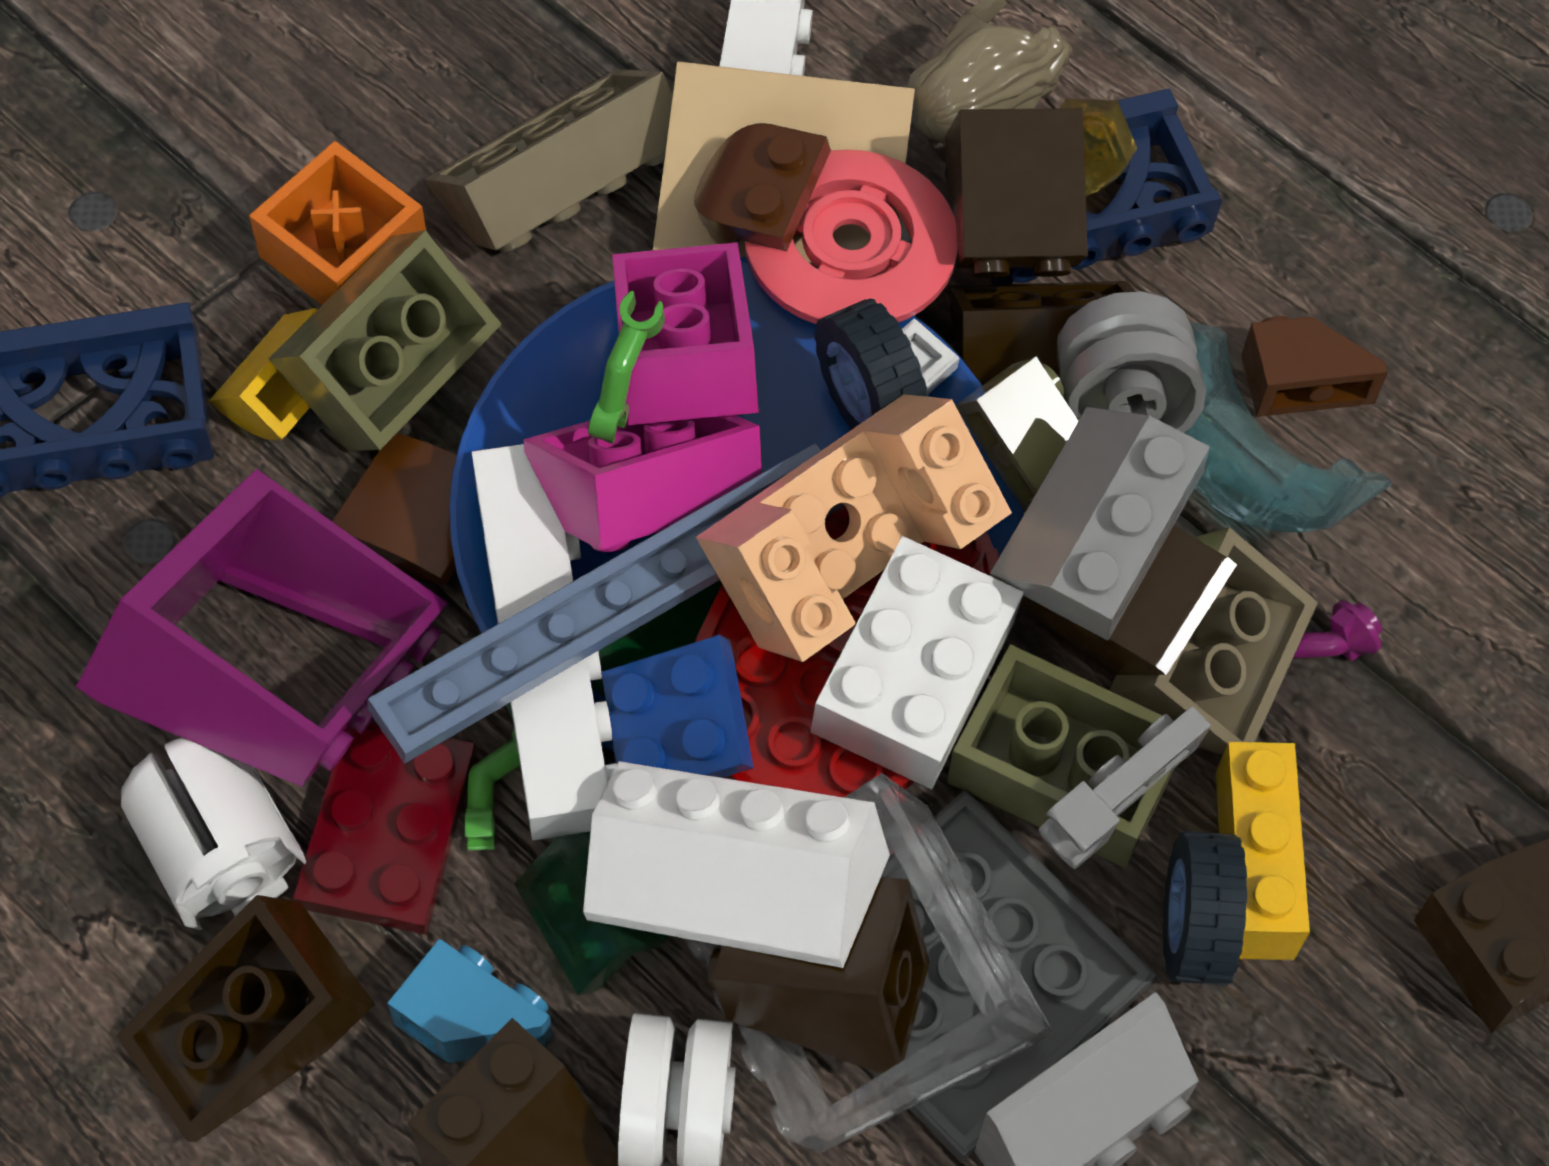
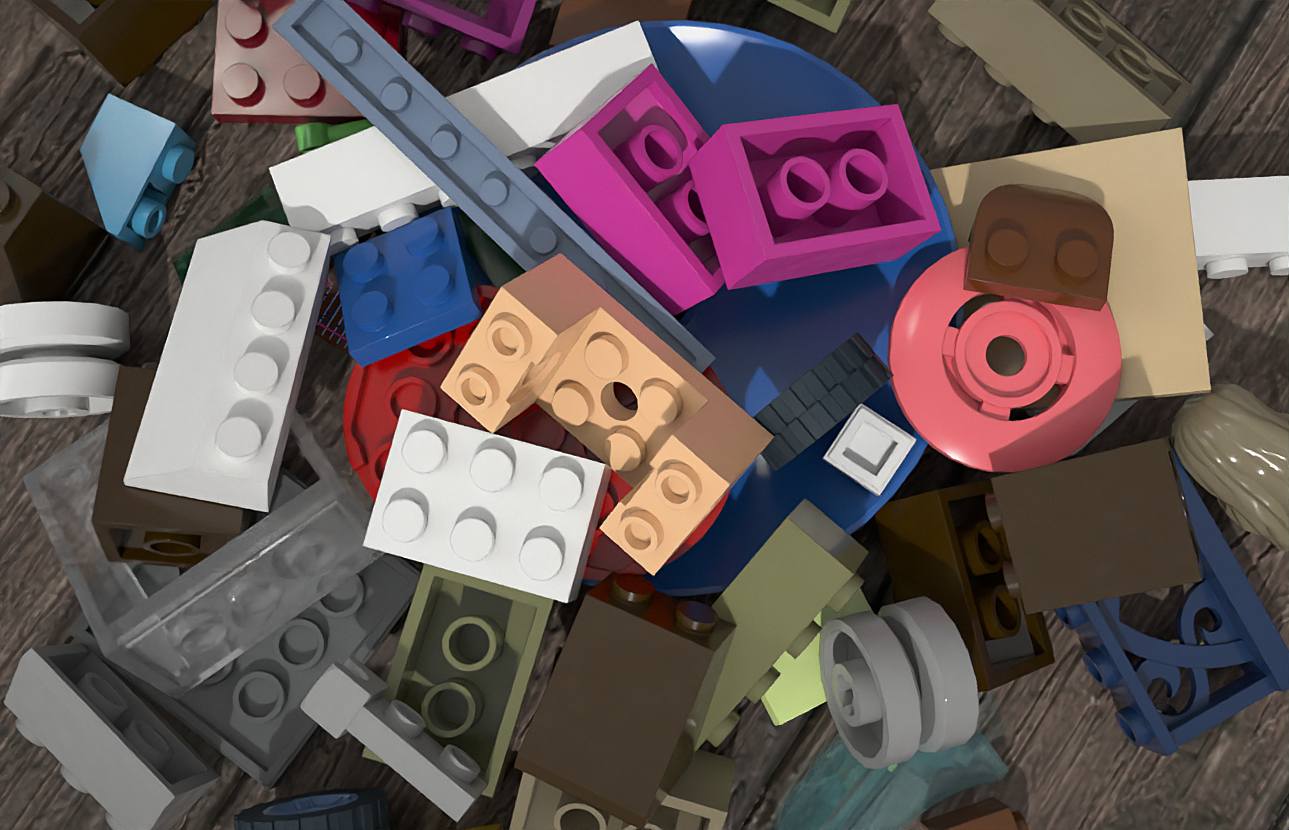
camera: 85 degrees right, 20 degrees up
(612, 408) = (723, 124): bright green arm -> none
(1102, 516) = (651, 675): light grey slope -> none
(1106, 141) = (1200, 611): clear yellow plate -> none

